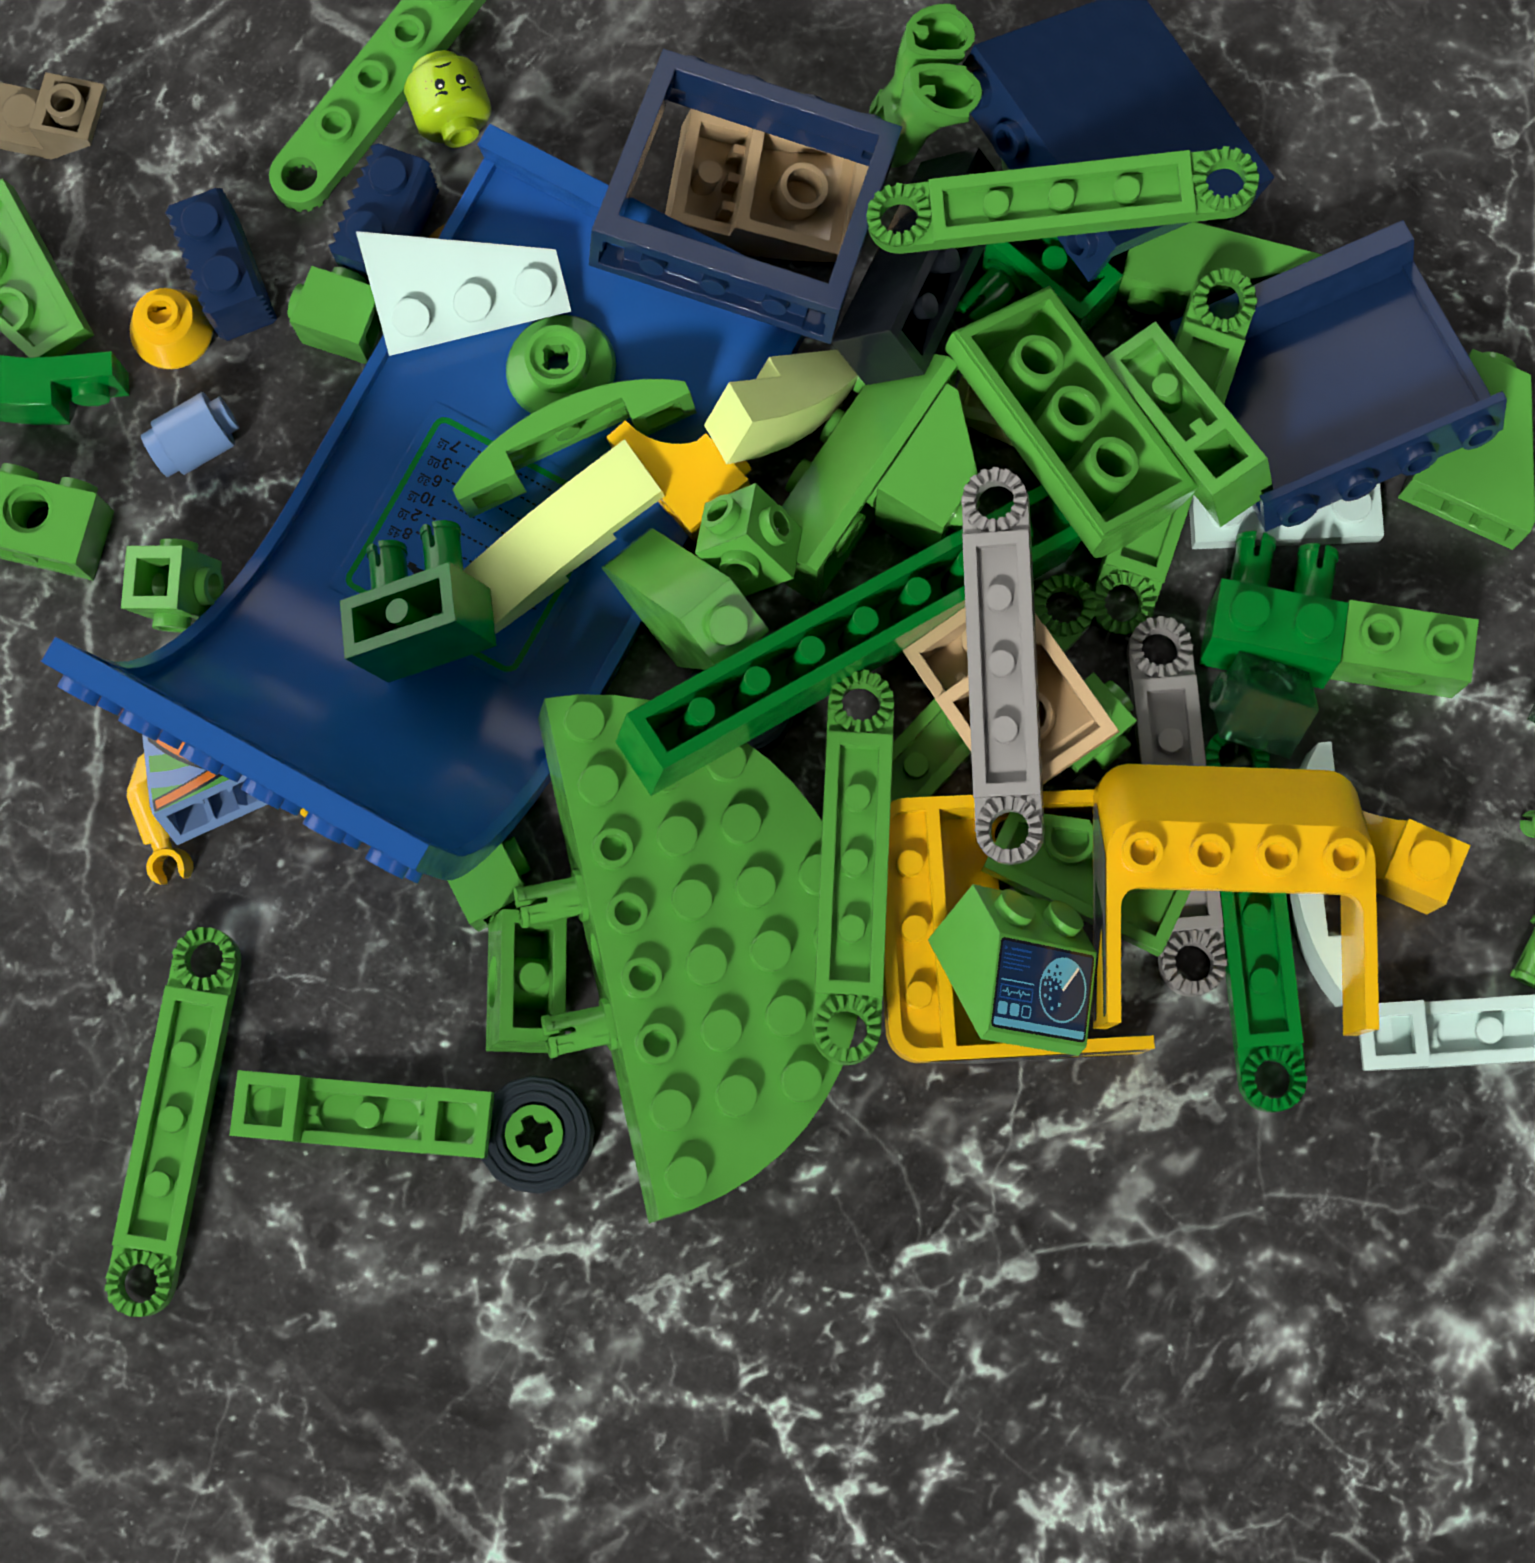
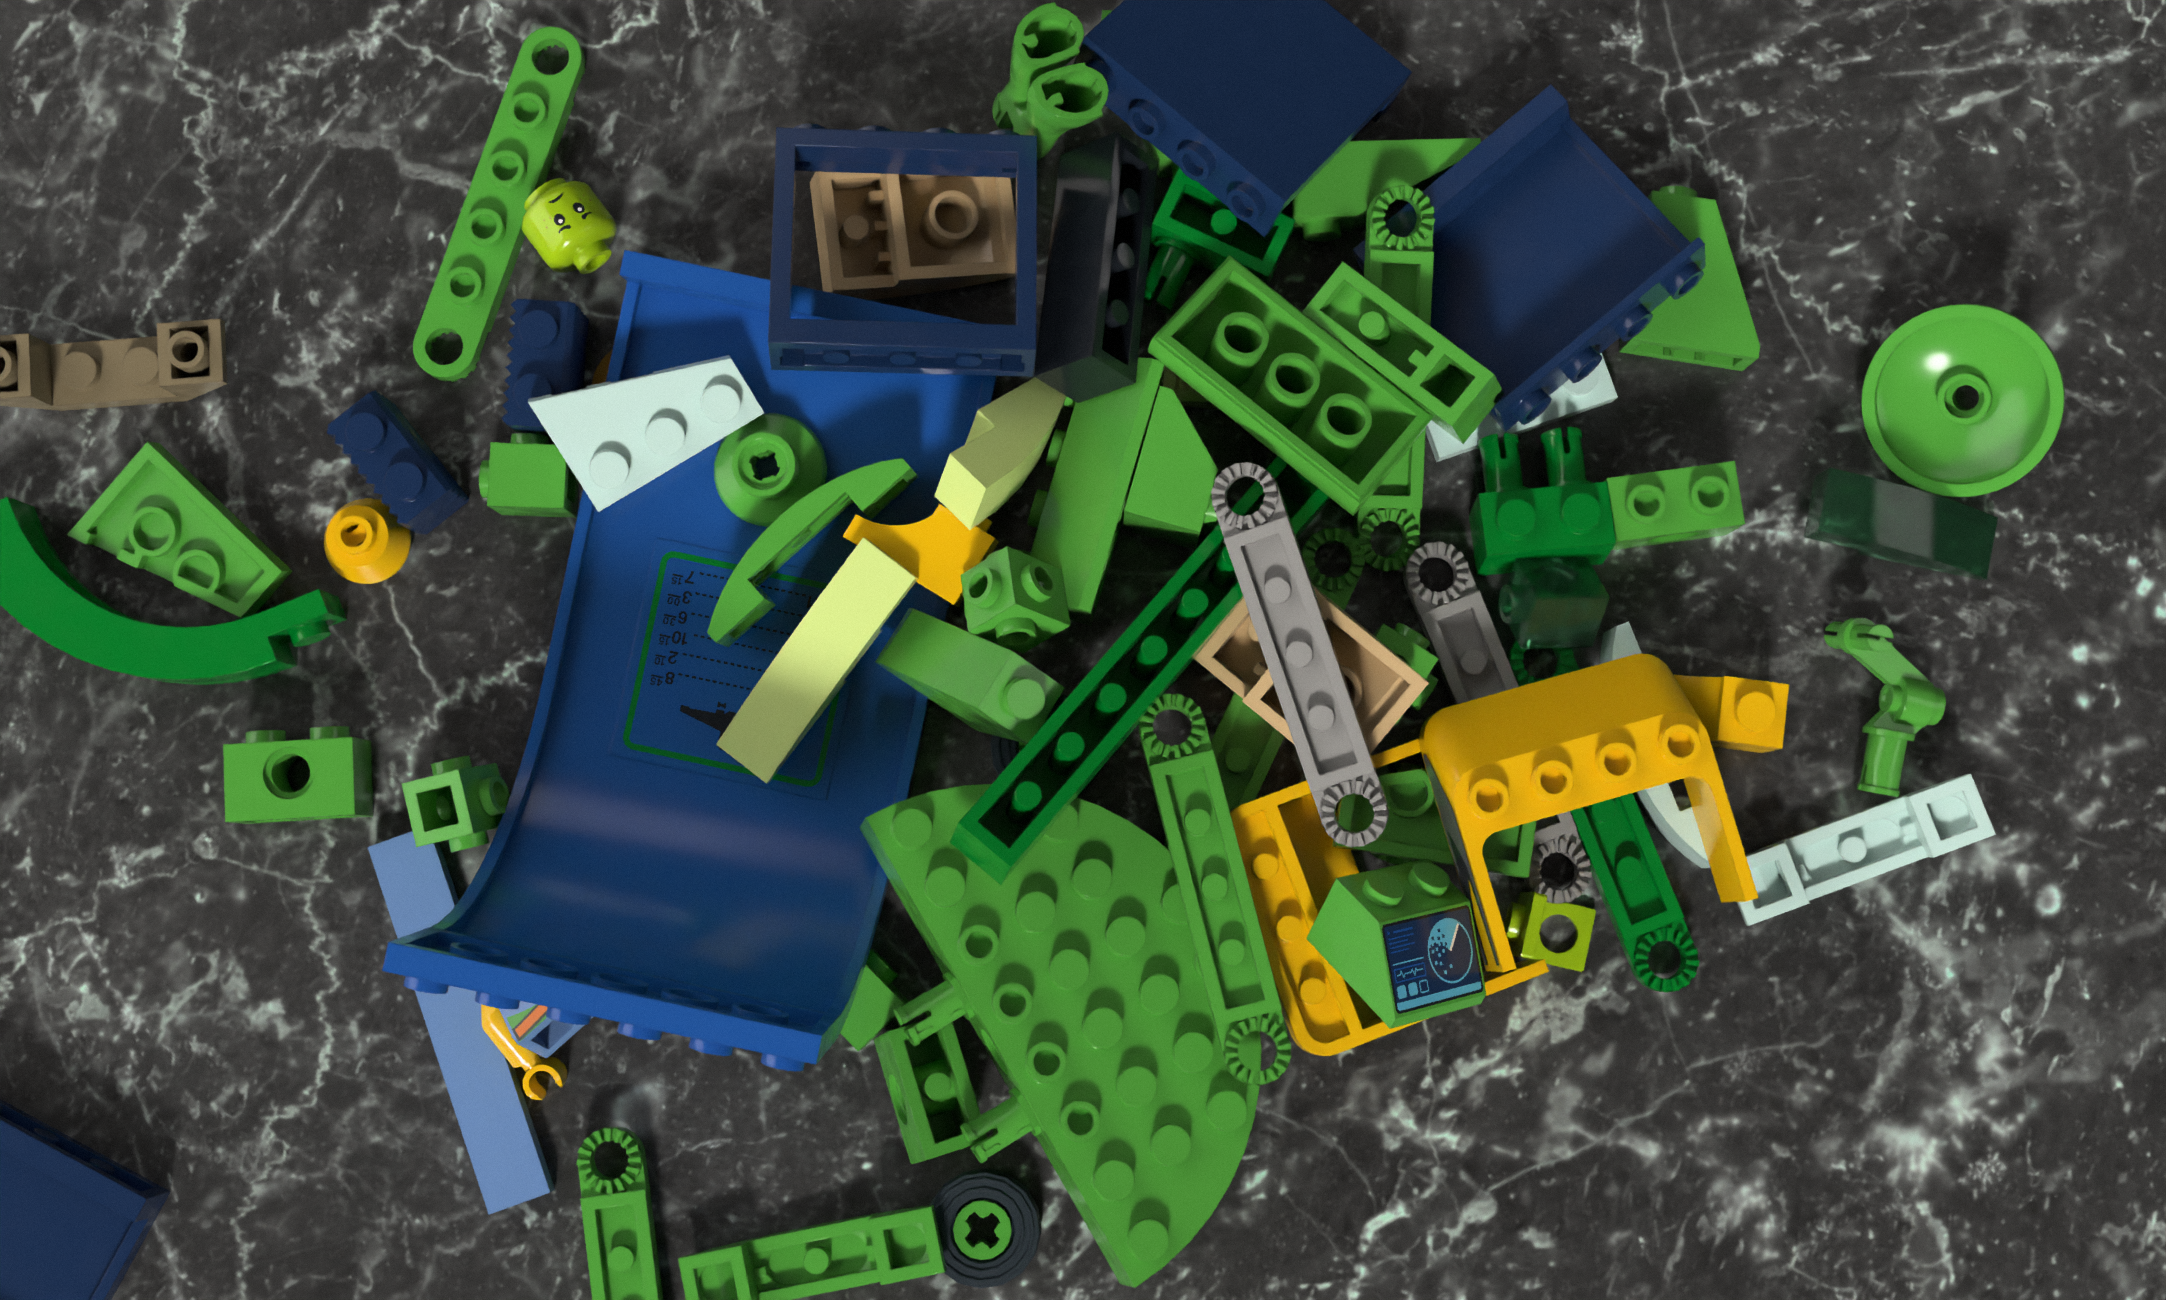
camera: 20 degrees left, 5 degrees up
(107, 838) = (474, 1070): none -> medium blue tile
(190, 434) = (423, 644): medium blue brick -> none
(417, 618) = (716, 772): green brick -> none
(1063, 200) = (1220, 174): bright green plate -> none
(1149, 1000) = (1524, 923): none -> lime bracket

